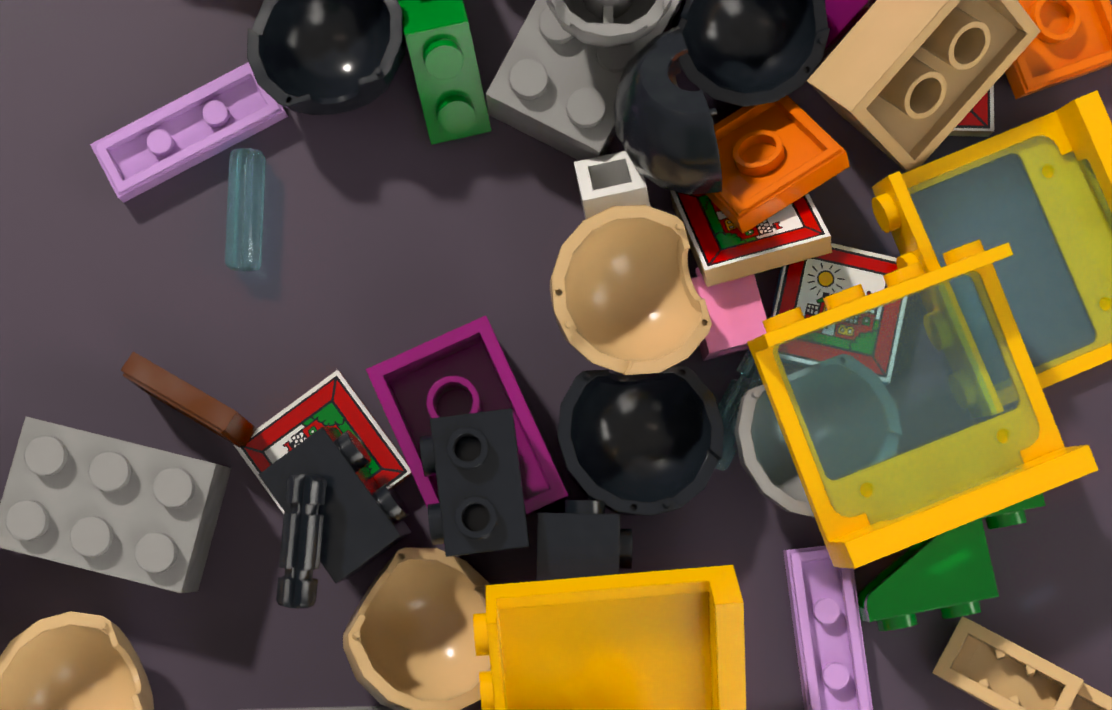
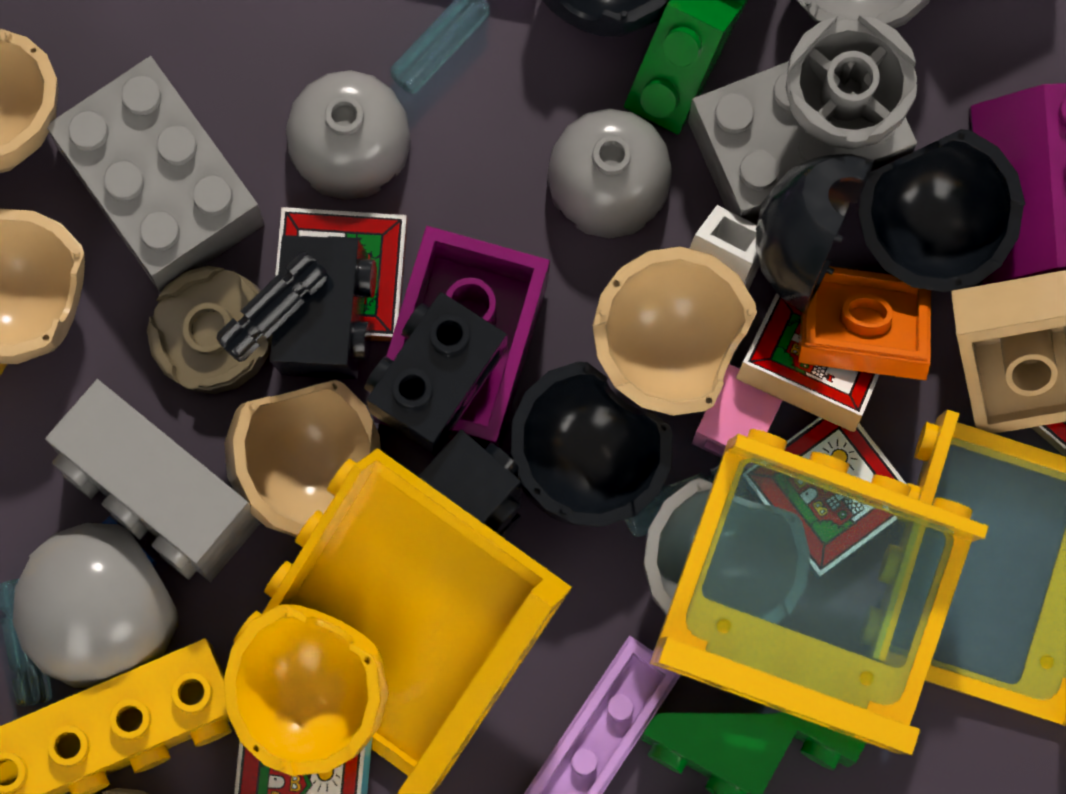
camera: 40 degrees right, 5 degrees down
(188, 400) = (277, 144): reddish brown tile -> none
(236, 343) = (348, 134): none -> light grey cylinder
(241, 590) = (187, 326): none -> dark tan tile
(465, 204) = (609, 173): none -> light grey cylinder

